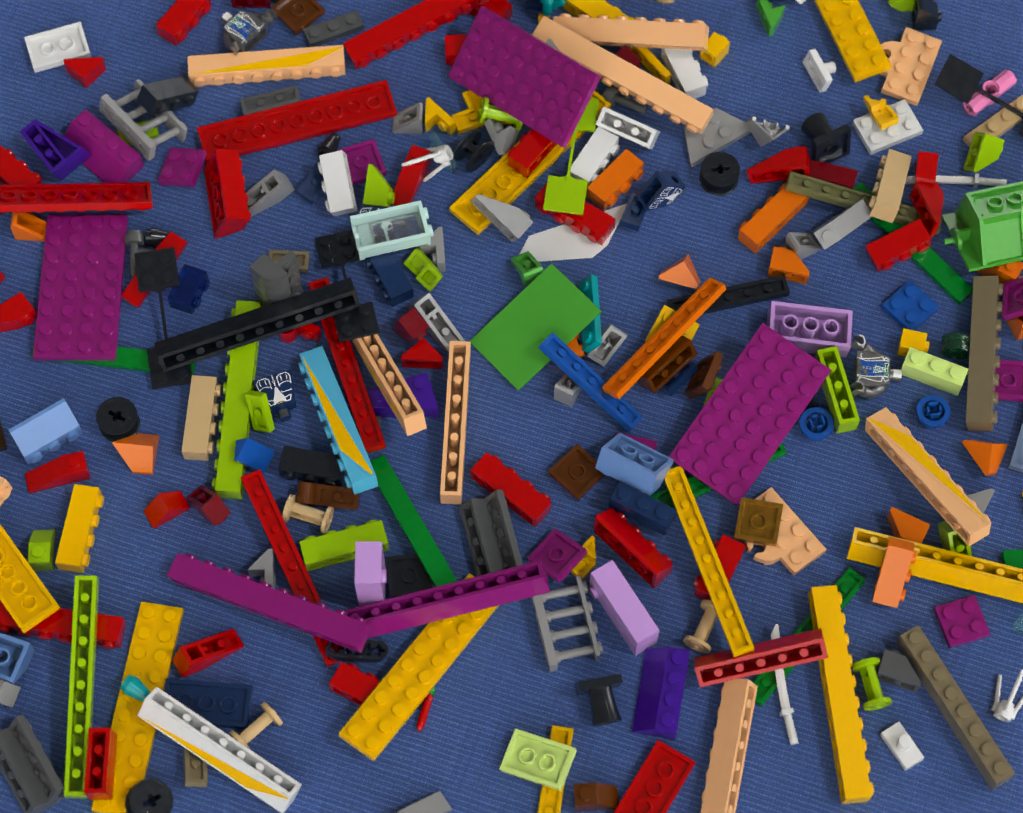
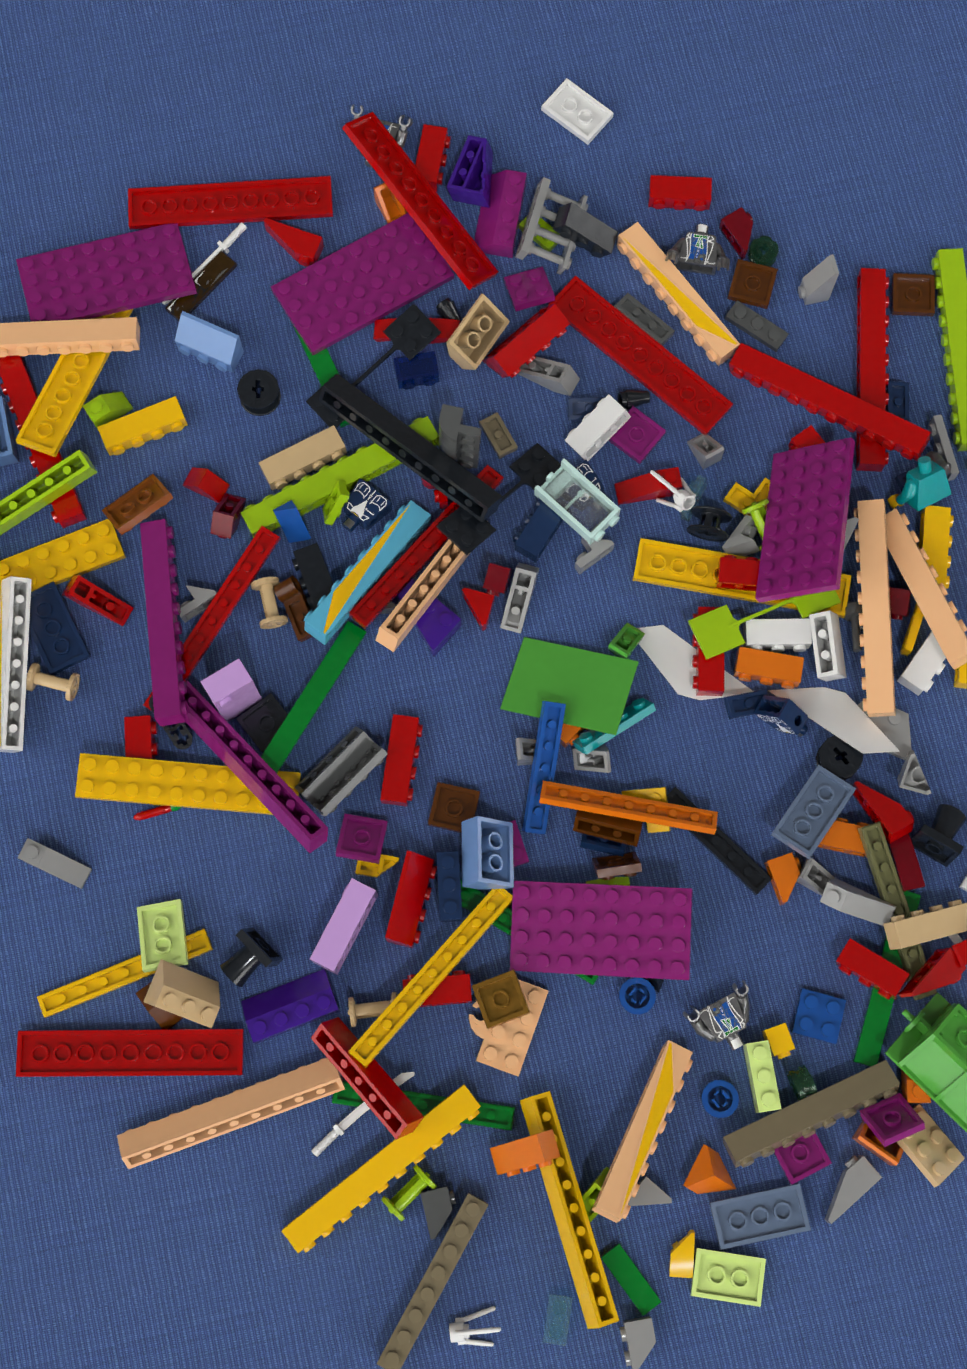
camera: 60 degrees right, 10 degrees up
(58, 472) = (183, 378): red slope -> none
(85, 69) = (570, 149): red slope -> none
(135, 239) = (435, 296): dark grey piece -> none
(135, 688) = (26, 563): teal cone -> none
(139, 452) = (242, 428): orange slope -> none
(147, 569) = (137, 504): none -> dark orange plate
(196, 224) = (476, 334): none -> tan slope
(340, 545) = (260, 651): lime brick -> none
(377, 189) = (615, 465): lime slope -> none
(424, 269) = (567, 552): lime slope -> none
(436, 115) = (724, 467): yellow slope -> none
(455, 423) = (432, 673): light nougat brick -> none
(507, 218) = (661, 596): light grey slope -> none
(549, 637) = (281, 876): light grey fence -> none
(602, 766) = (184, 994): none -> tan slope
(681, 273) = (712, 784): orange slope -> none
(689, 152) = (840, 716): none -> white sticker
(753, 211) = (813, 812): none -> sand blue plate
(812, 326) = (729, 934): lavender brick -> none
(838, 391) = (682, 995): lime brick -> none
(902, 746) = (370, 1253): white tile -> none
(907, 526) = (582, 1143): orange slope -> none
(961, 621) = (525, 1243): magenta plate -> none

